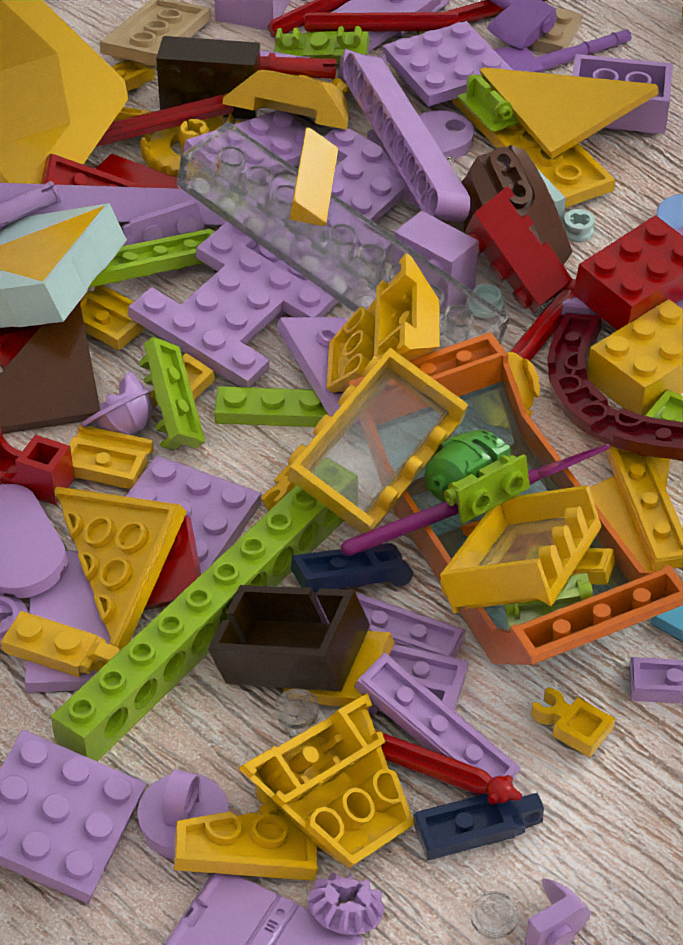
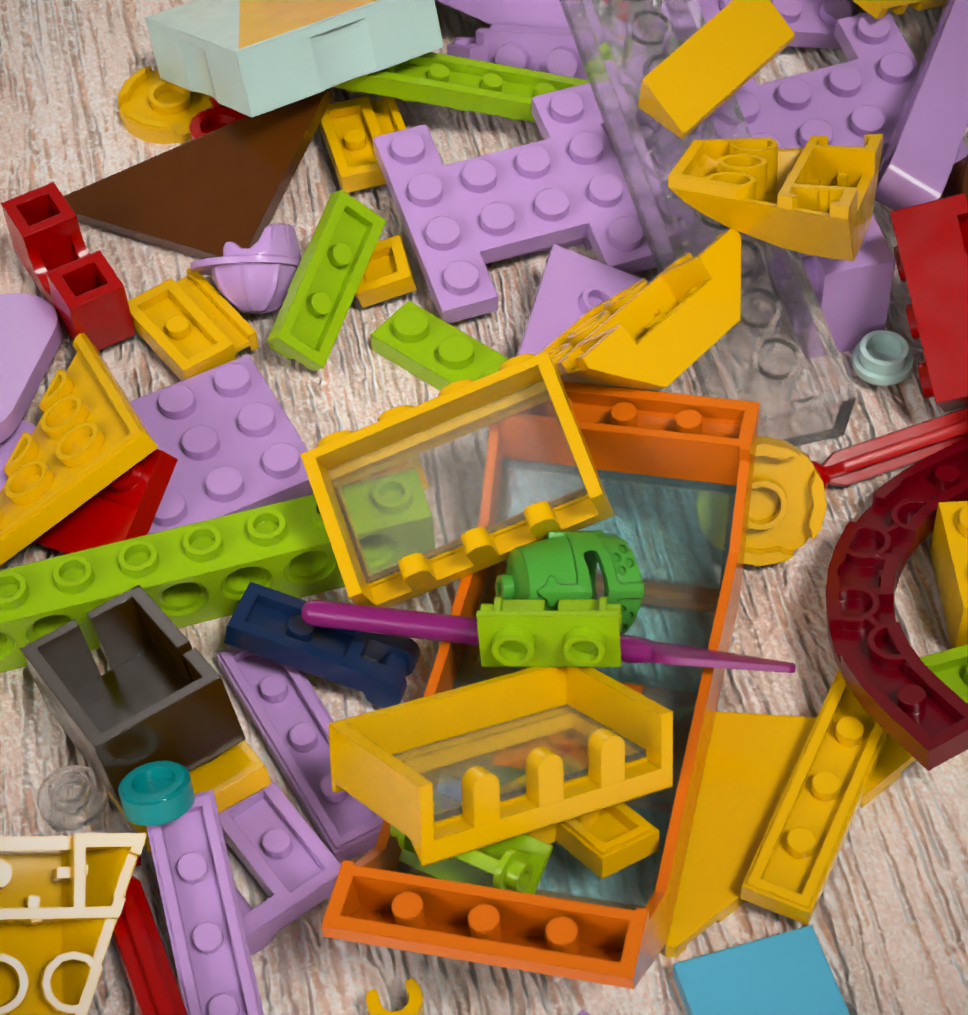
camera: 40 degrees right, 5 degrees up
(363, 667) = (156, 793): none -> teal tile
(415, 224) = (792, 197): none -> yellow wedge

